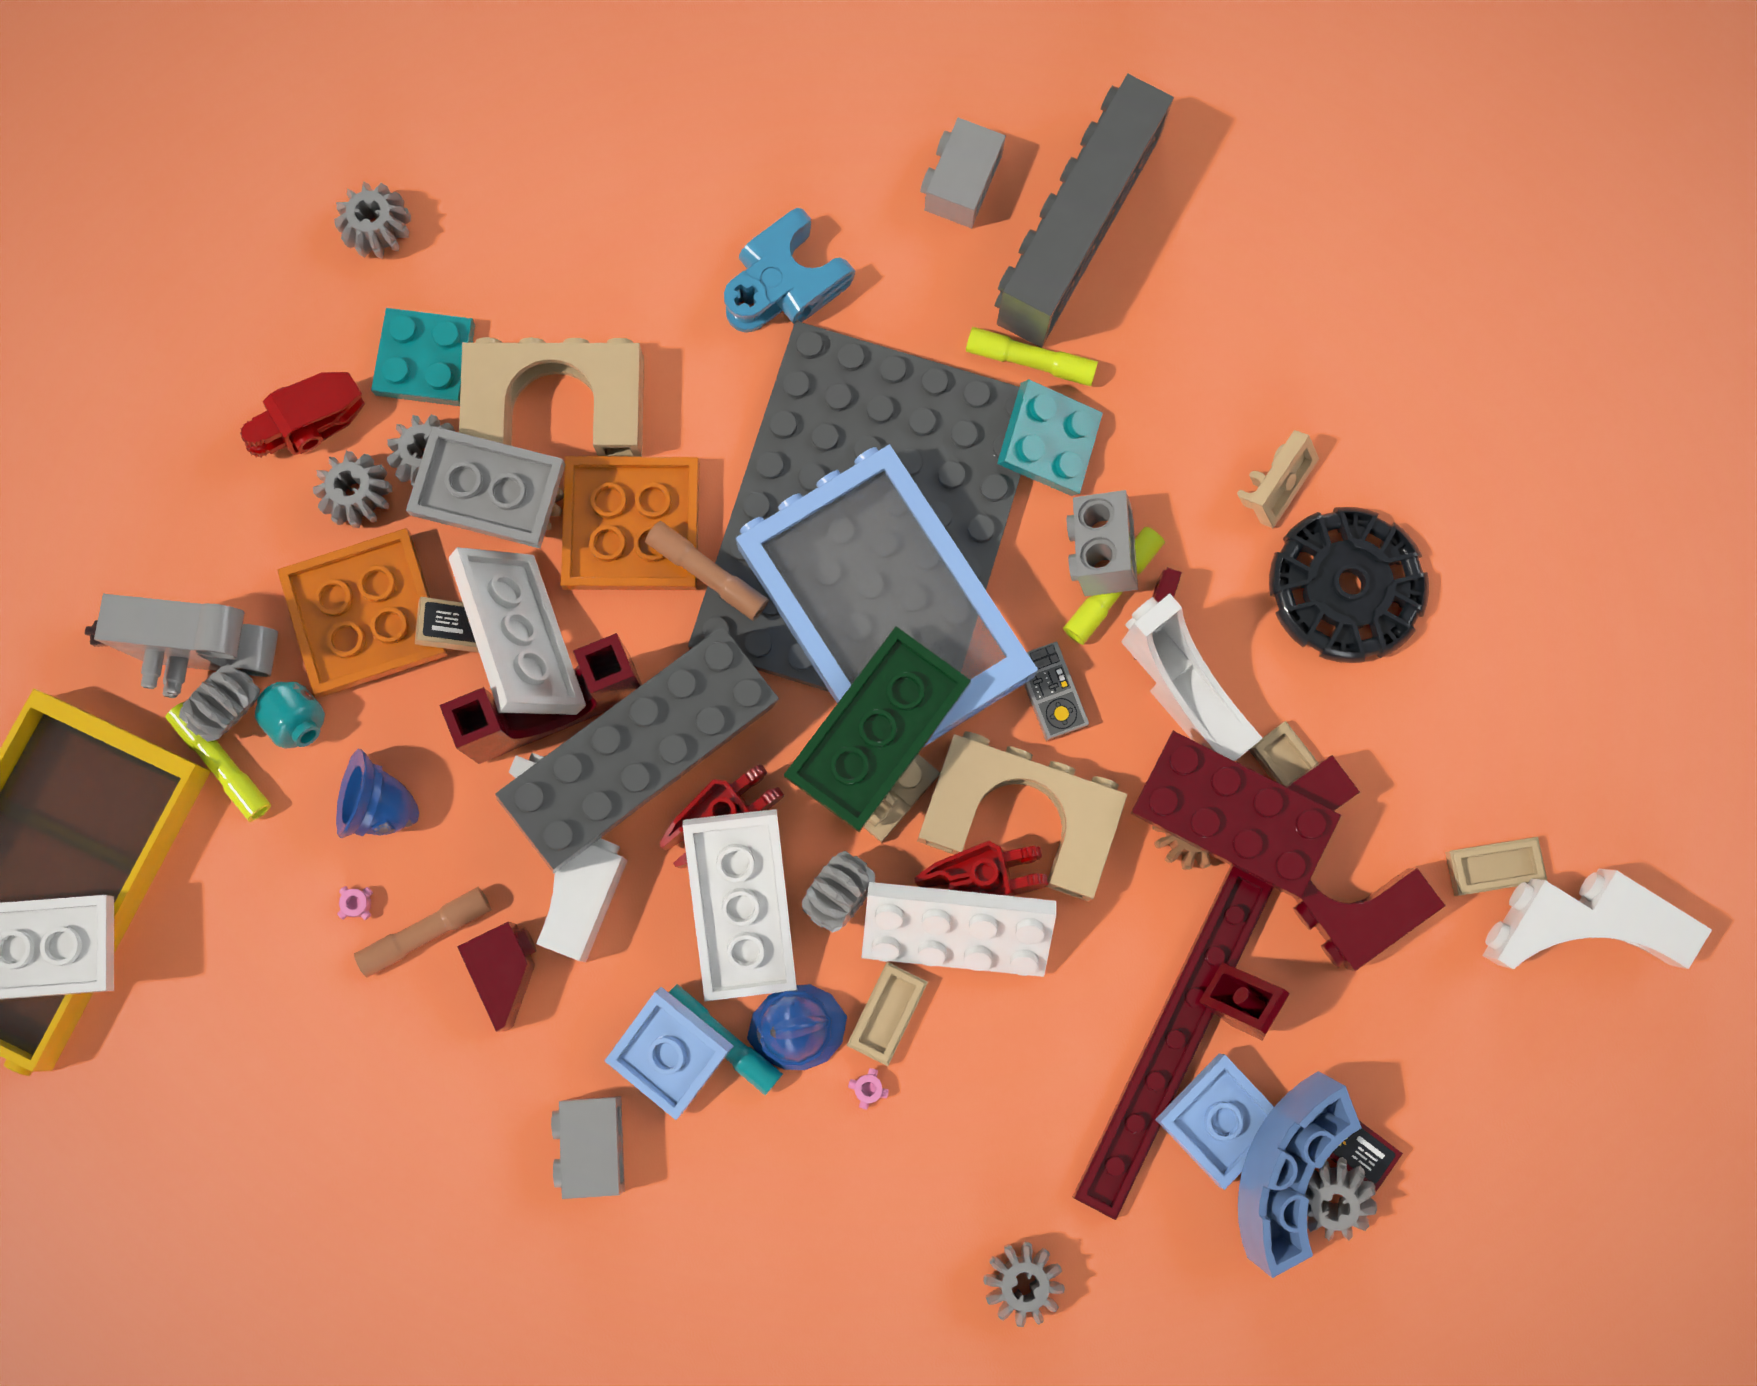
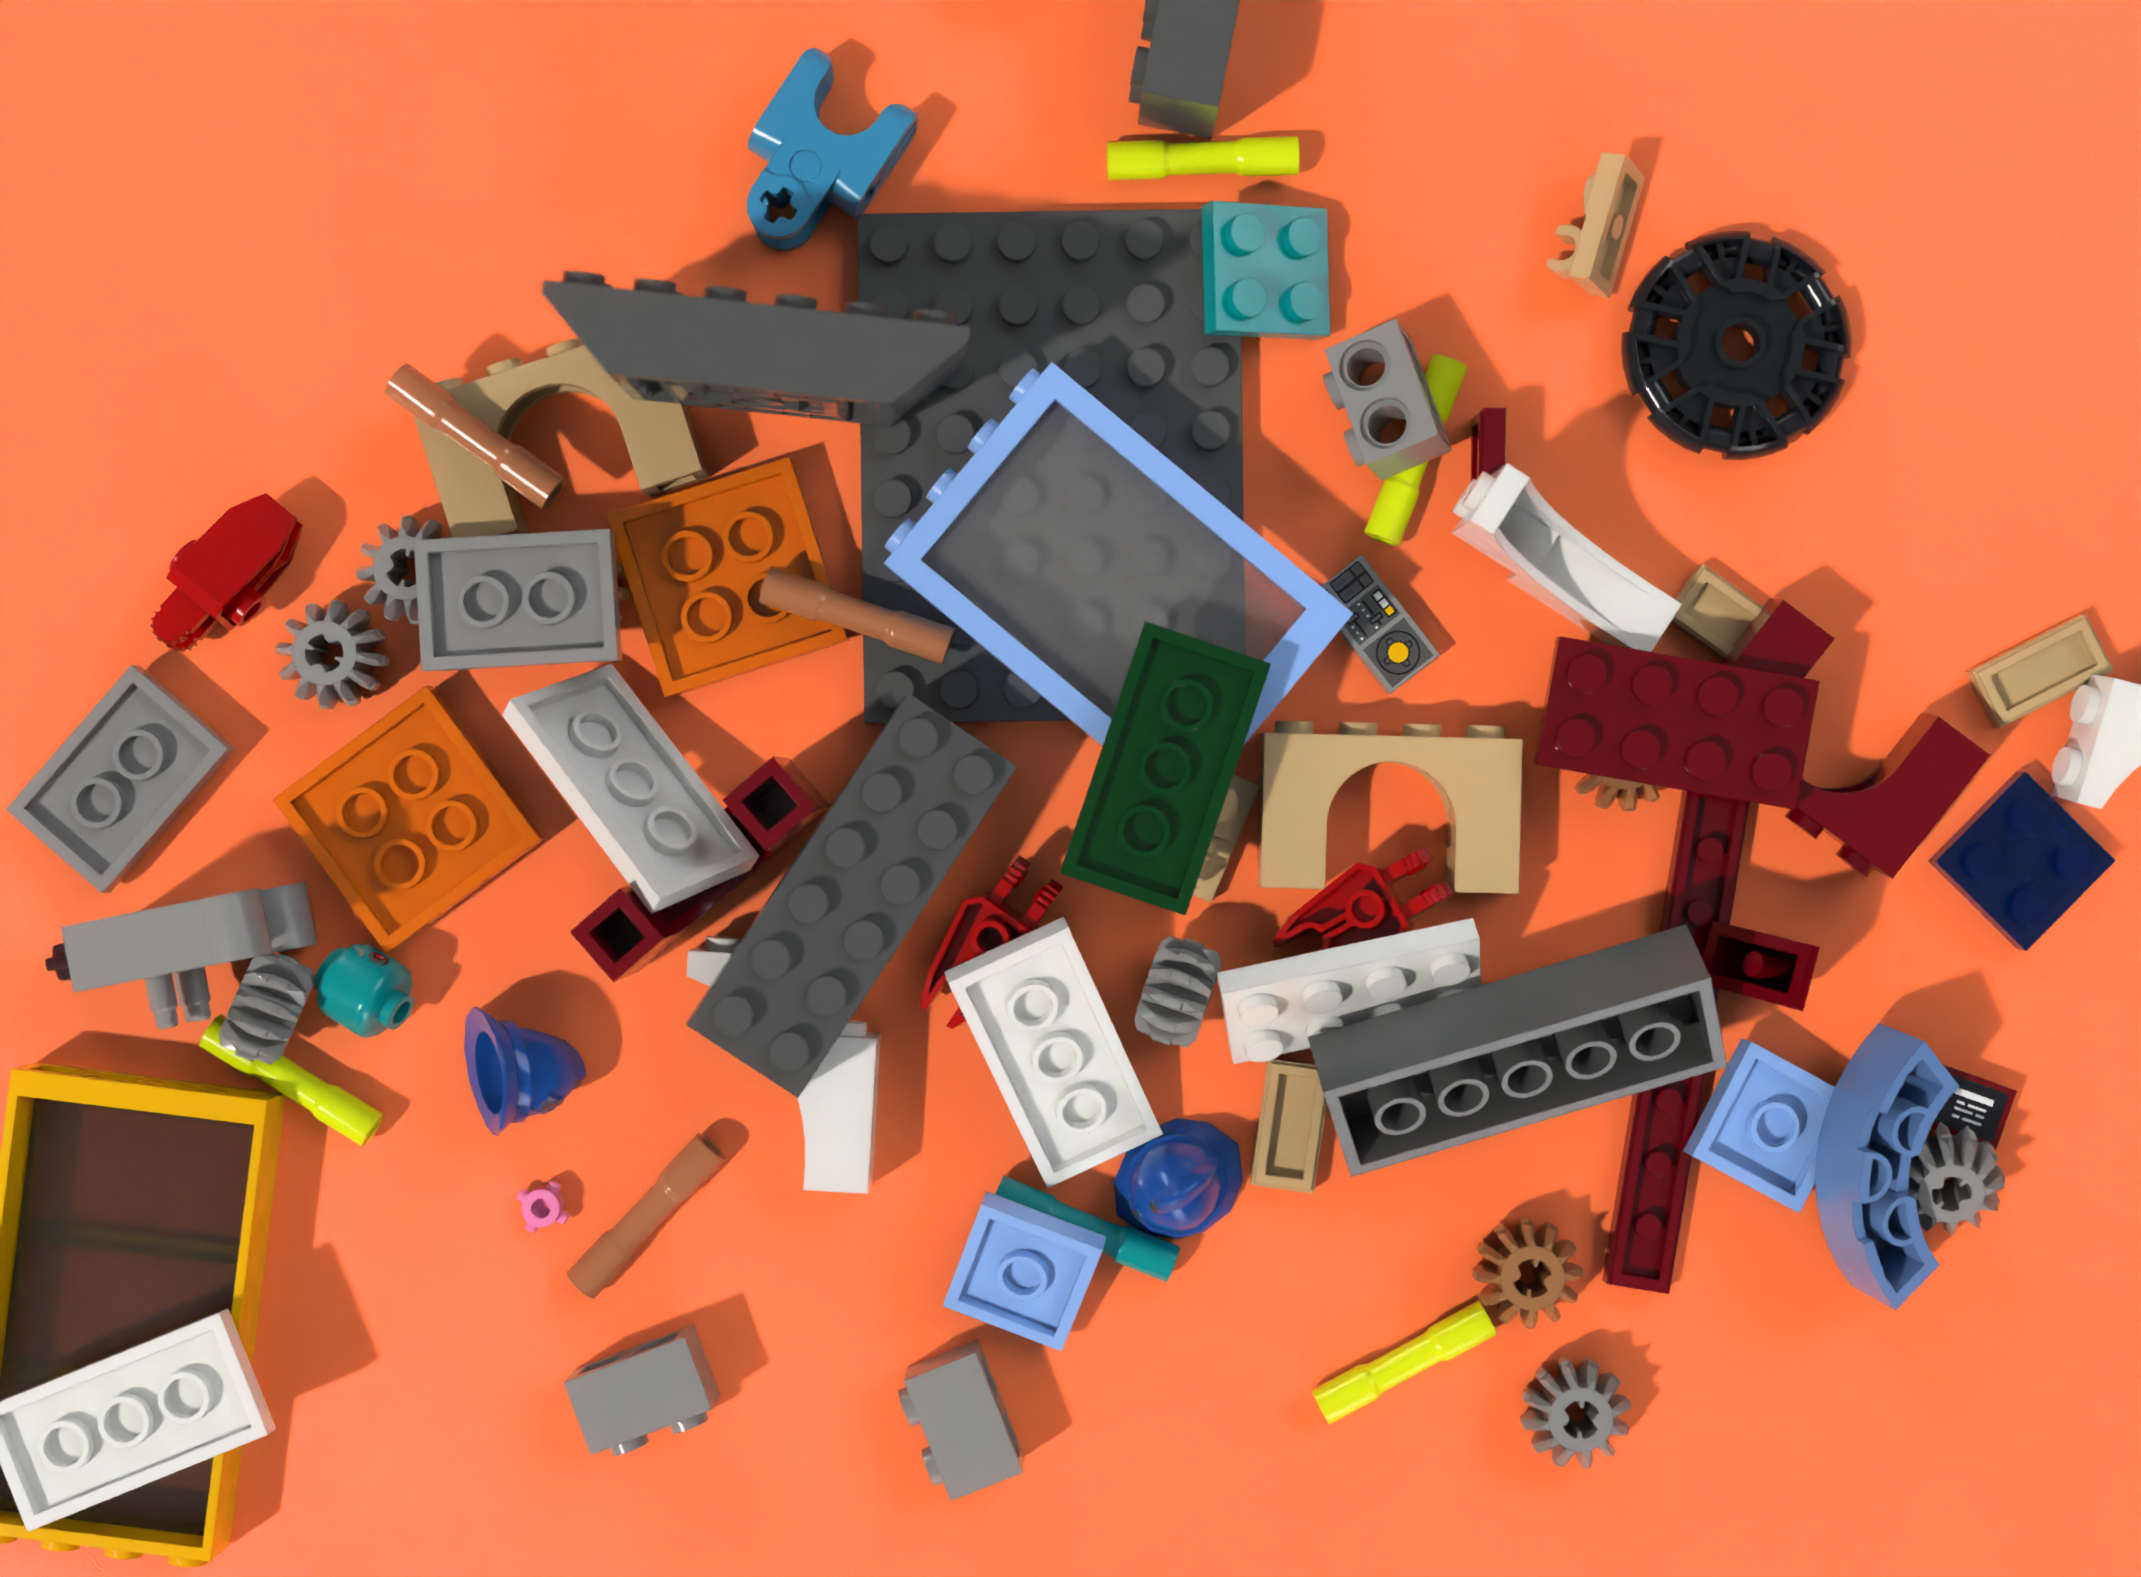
camera: 10 degrees left, 10 degrees up
(182, 526) = (120, 779): none -> light grey plate
(369, 204) = (221, 234): light grey gear -> none
(375, 1052) = (643, 1392): none -> light grey brick
(421, 356) = (353, 436): teal plate -> none
(444, 625) = (526, 804): tile -> none
(500, 970) = (767, 1235): dark red slope -> none
(512, 397) = (442, 412): none -> nougat piece
(703, 371) = (757, 354): none -> dark grey slope
(868, 1088) = (1296, 1229): bright pink piece -> none
(884, 1214) = (1439, 1343): none -> neon yellow piece
(1034, 1178) = (1504, 1271): none -> medium nougat gear
(1060, 1005) = (1520, 1050): none -> dark grey brick
(1449, 993) = (2021, 860): none -> clear blue plate

